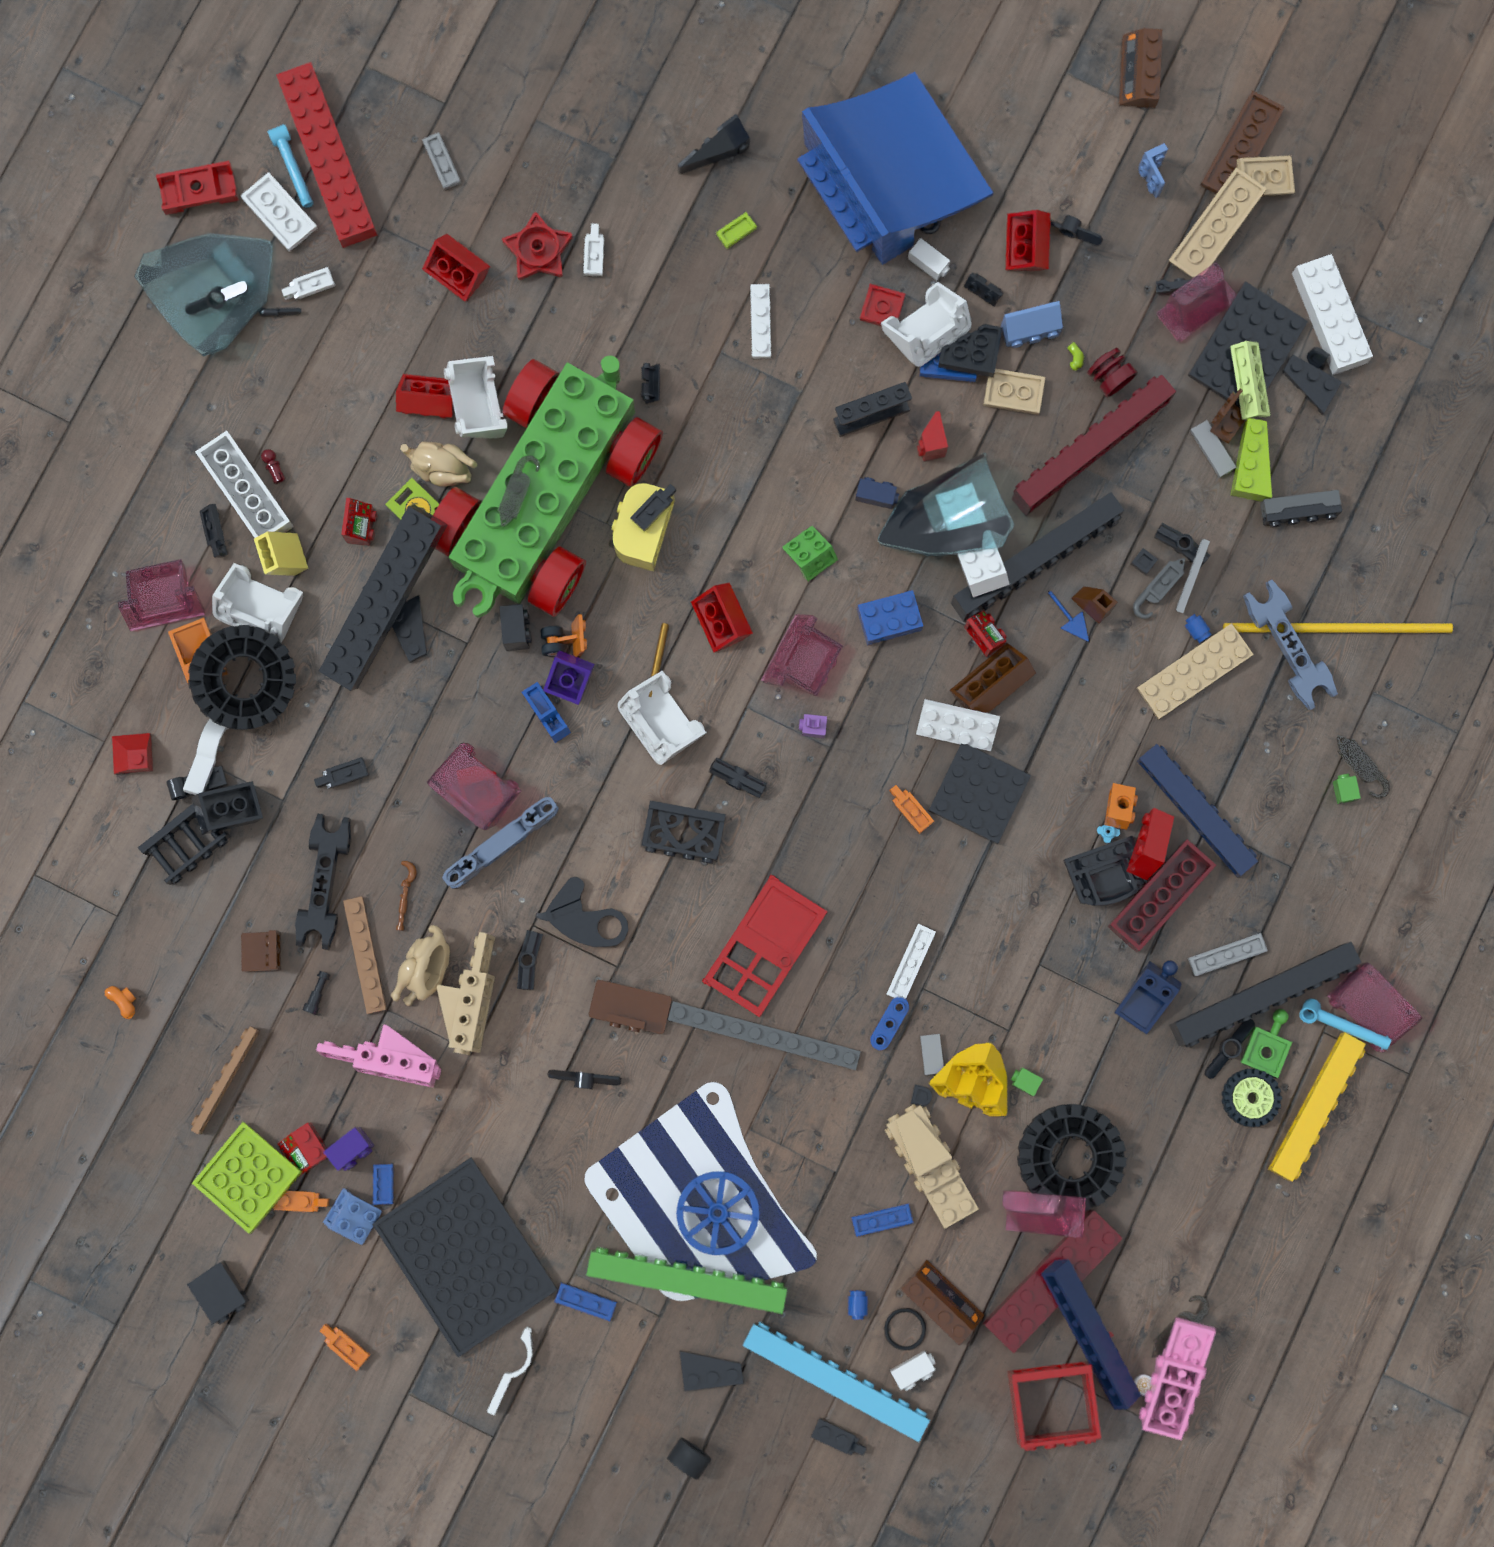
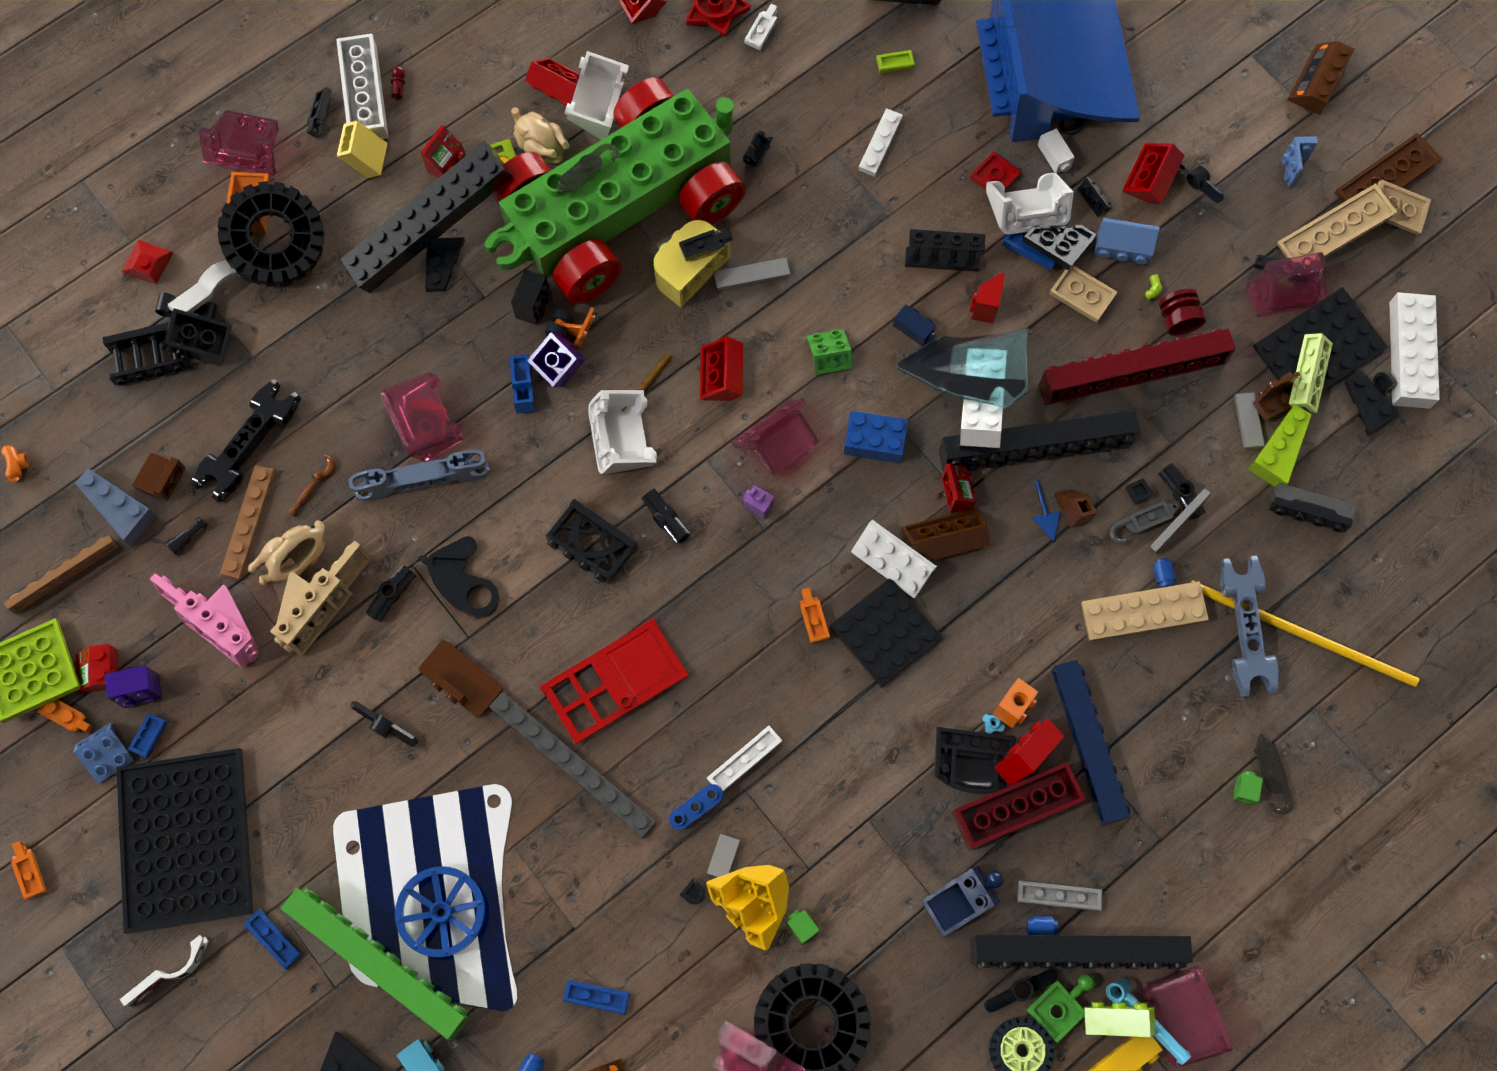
camera: 25 degrees right, 10 degrees down
(241, 997) = (120, 510): none -> sand blue wedge
(250, 603) = (311, 174): white windscreen -> none
(343, 774) = (315, 356): black hinge -> none
(703, 509) = (751, 274): none -> light grey tile
(931, 1164) = (669, 964): tan wedge -> none
(1224, 988) = (1042, 925): none -> blue brick
(1321, 1036) = (1120, 1019): none -> brick

